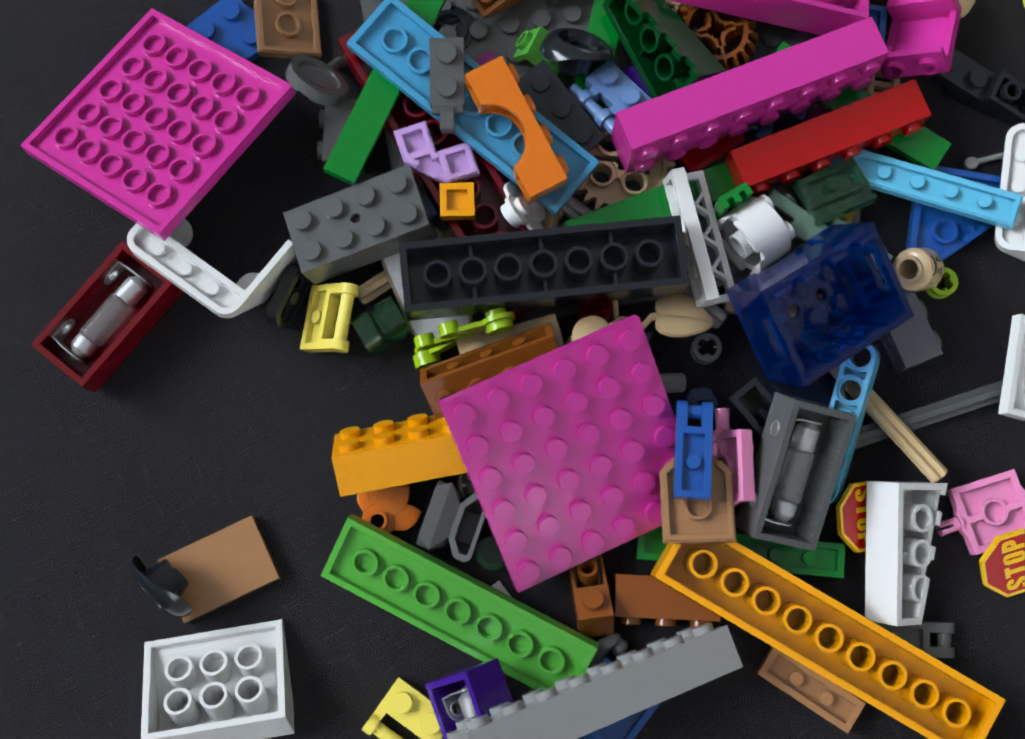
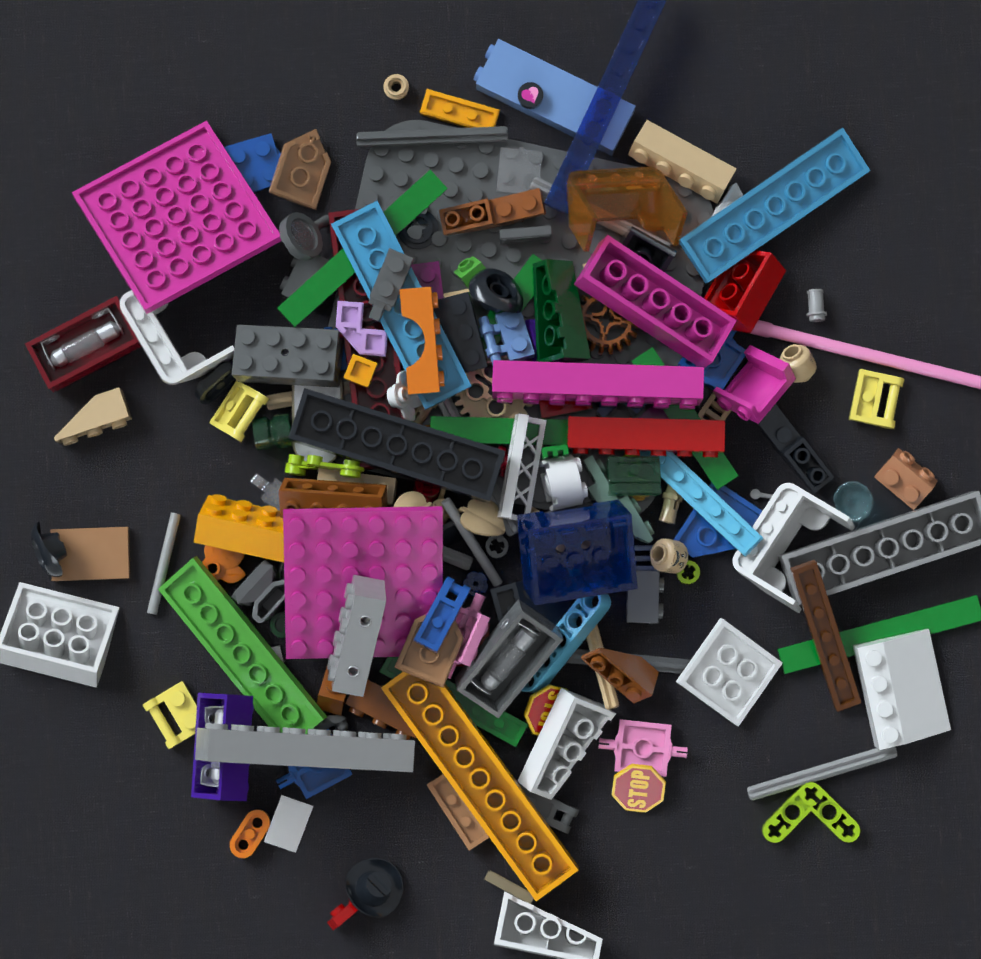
camera: 25 degrees right, 5 degrees up
(159, 395) = (99, 413): none -> tan slope
(314, 541) = (163, 562): none -> light grey bar
(411, 398) = (271, 491): none -> clear plate
(601, 522) = (357, 635): none -> light grey piece
(682, 356) = (472, 543): none -> light grey bar
(884, 215) = (670, 505): none -> tan pin
(936, 428) = (624, 671): none -> dark orange slope

